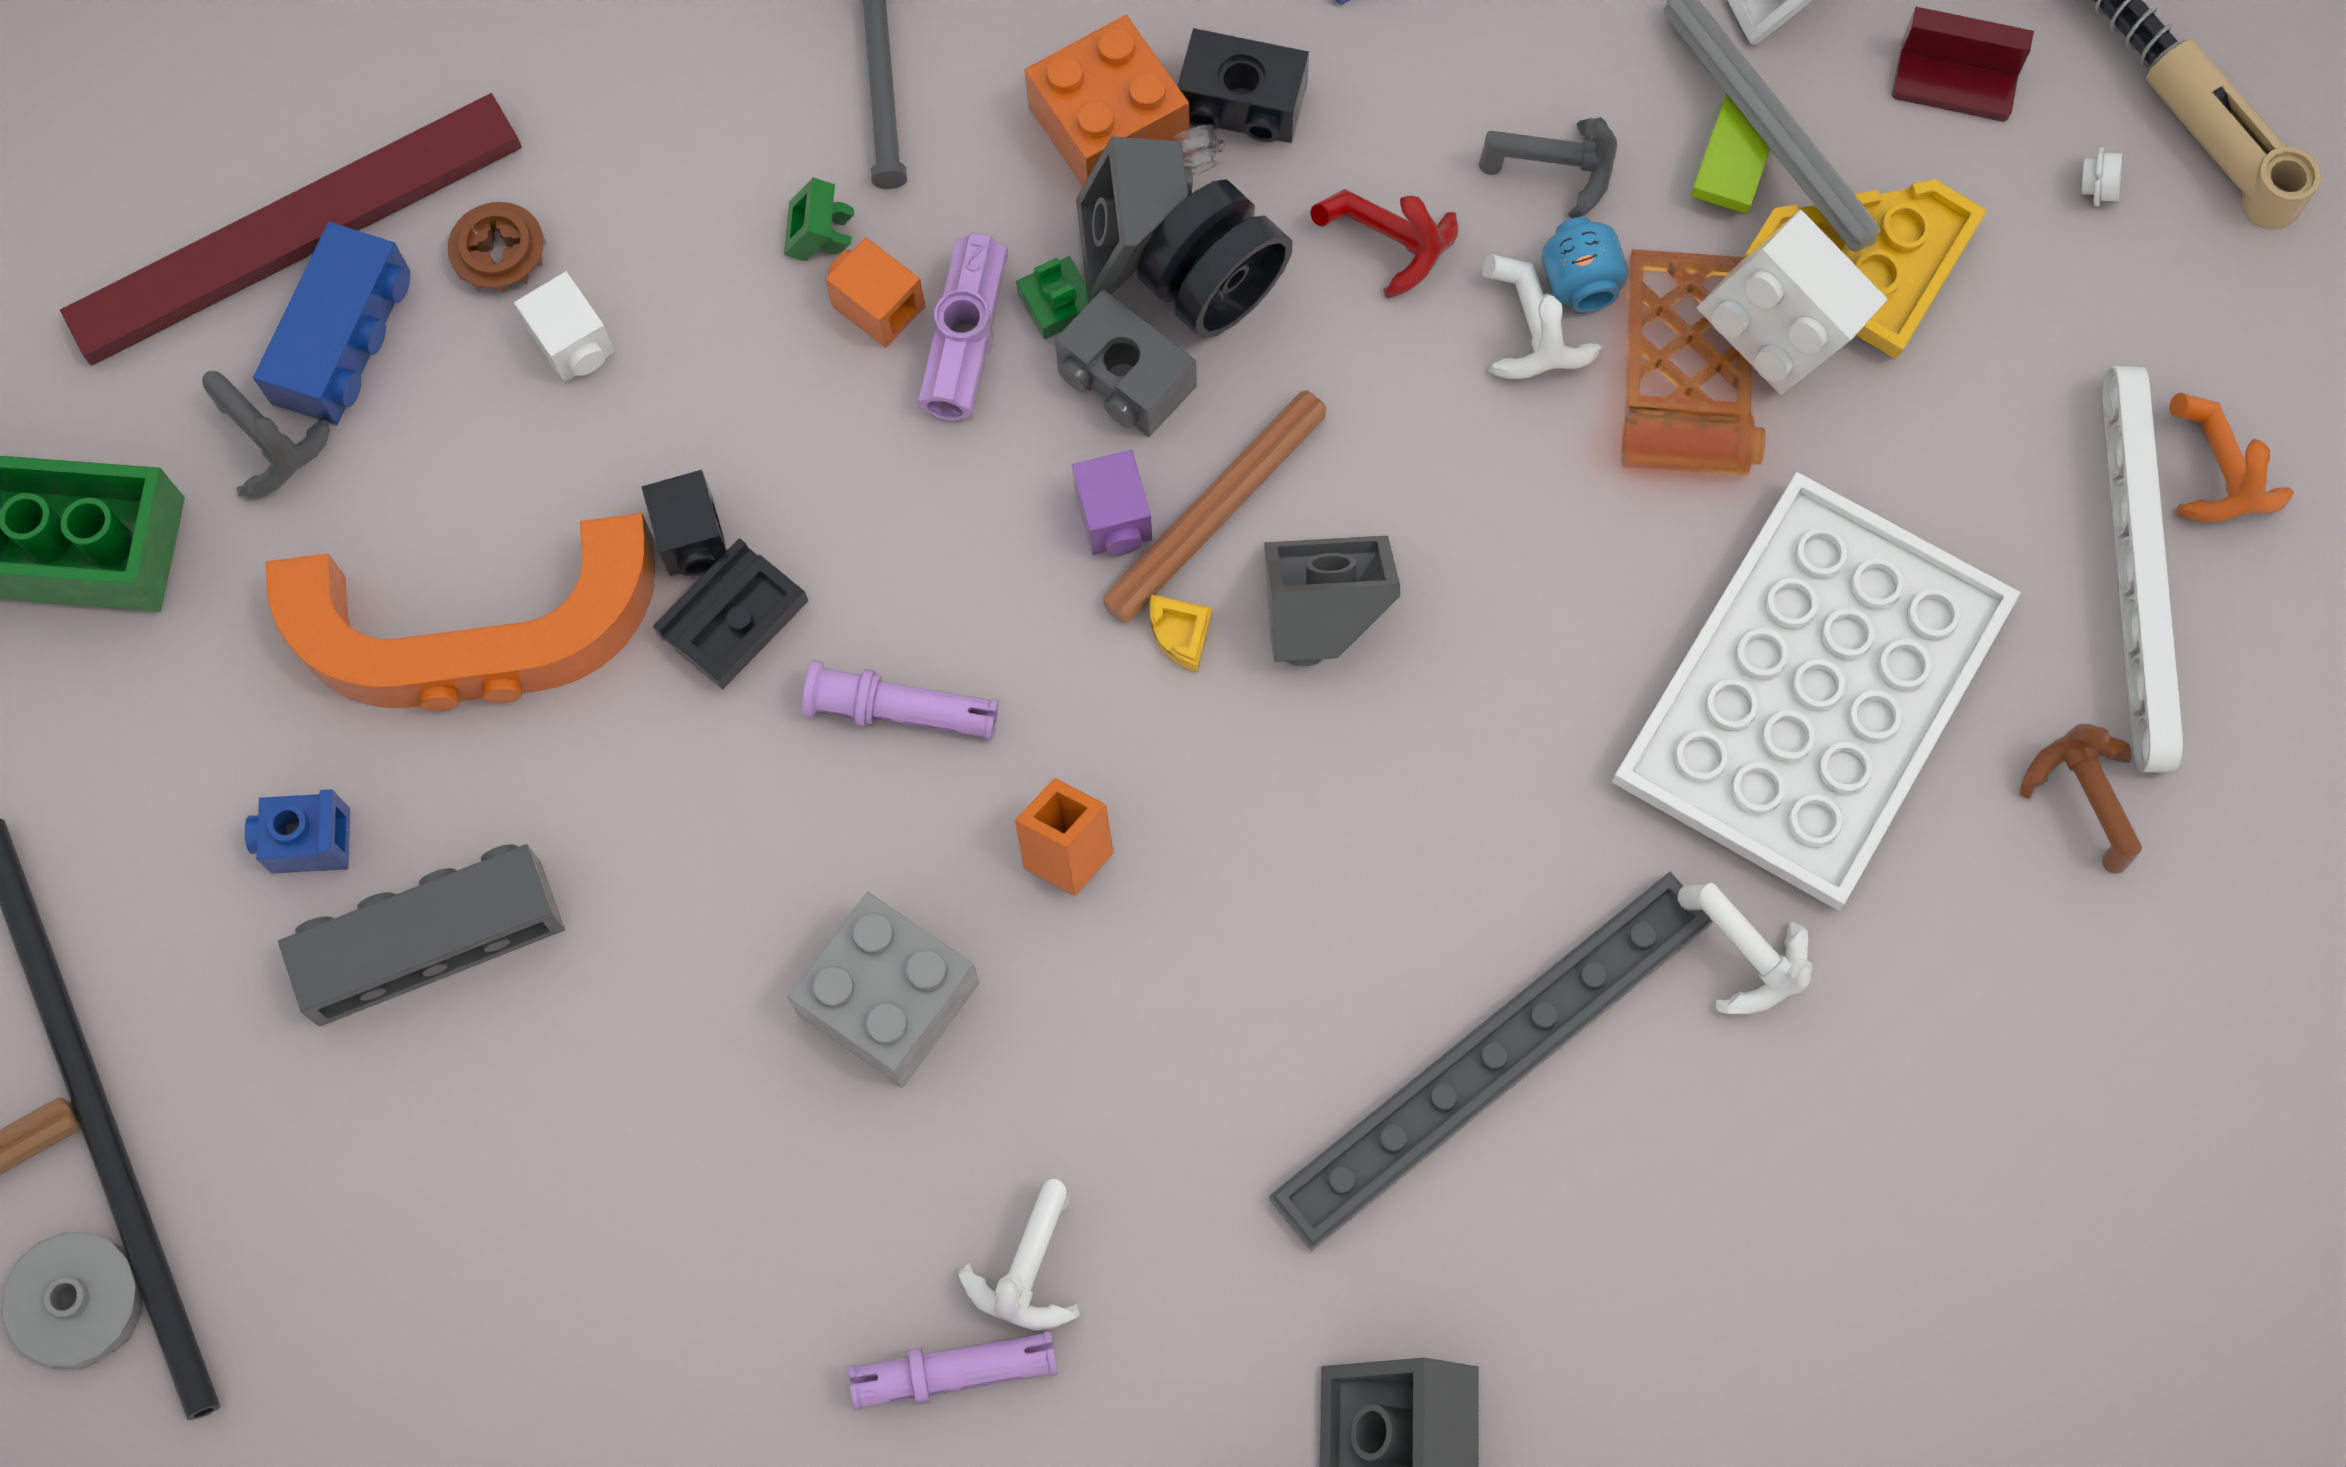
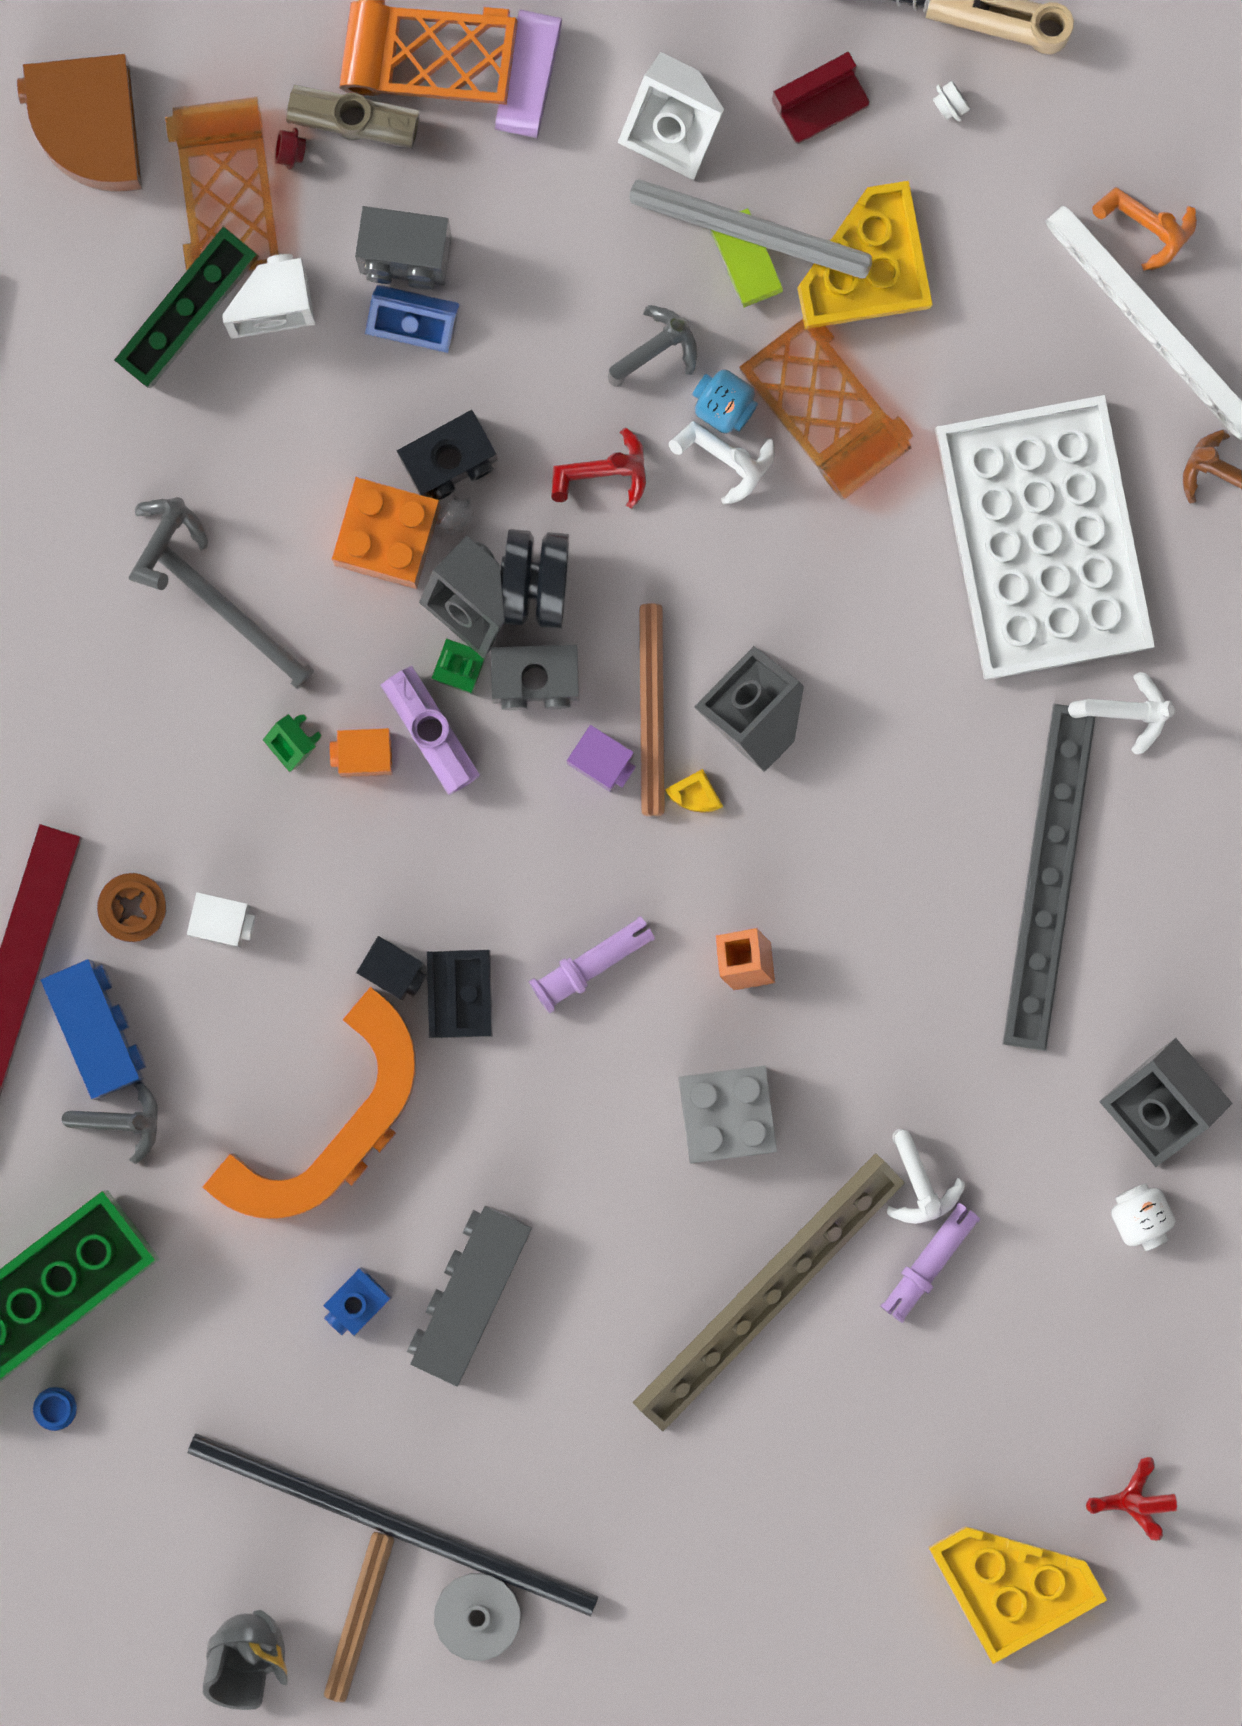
camera: 45 degrees left, 15 degrees up
(739, 1231) = (768, 1292): none -> dark tan plate
(1792, 303) = (860, 340): white brick -> none

